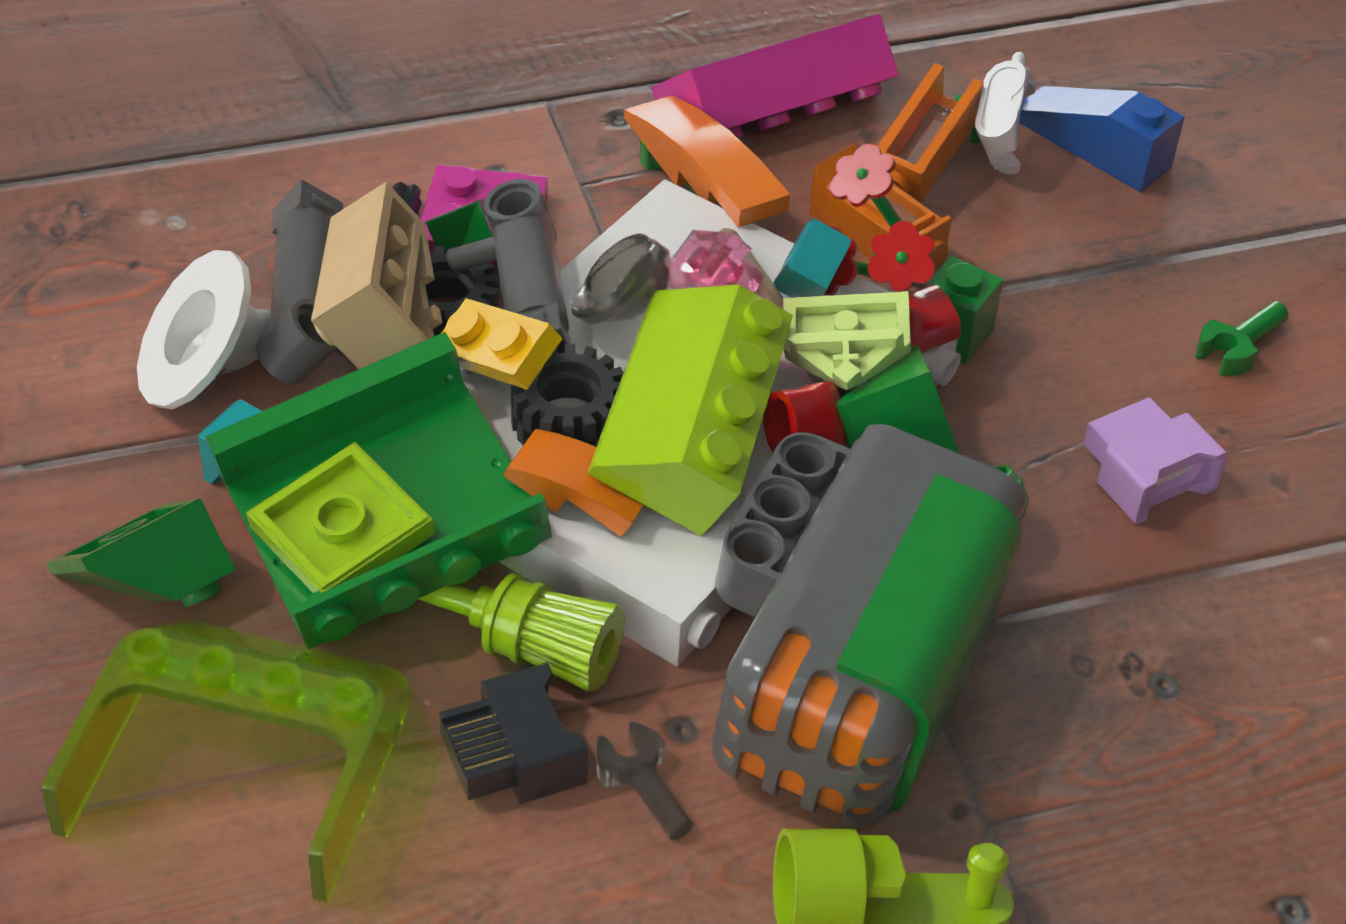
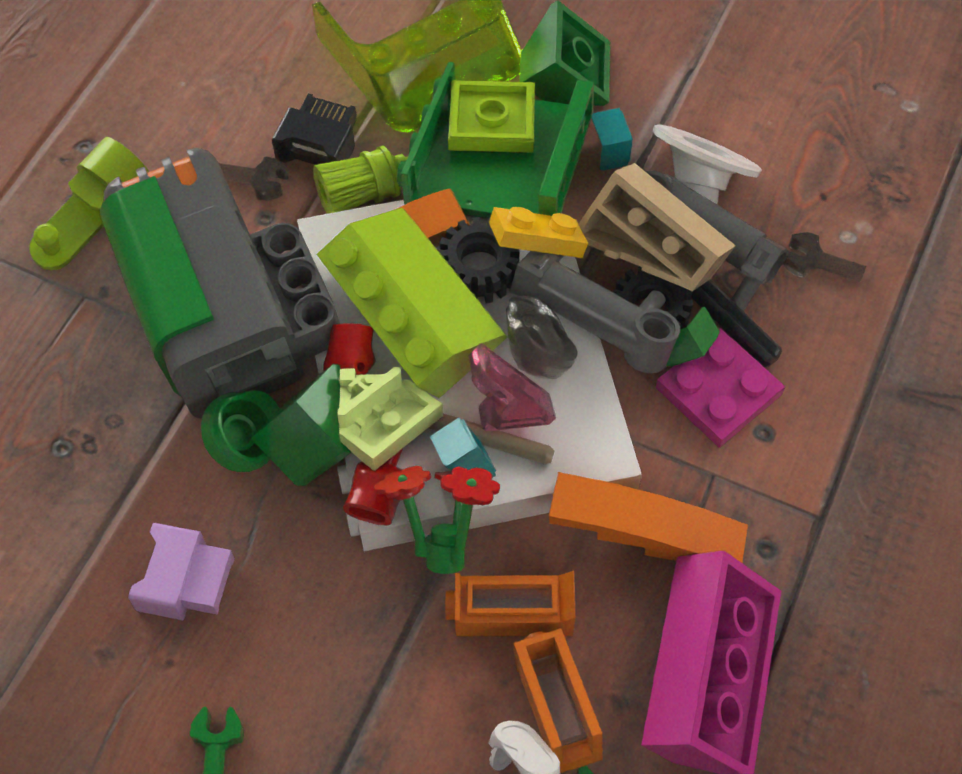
camera: 135 degrees right, 15 degrees up
(237, 221) = (816, 258): none -> clear smoke bar
(975, 298) = (387, 568): green brick -> none

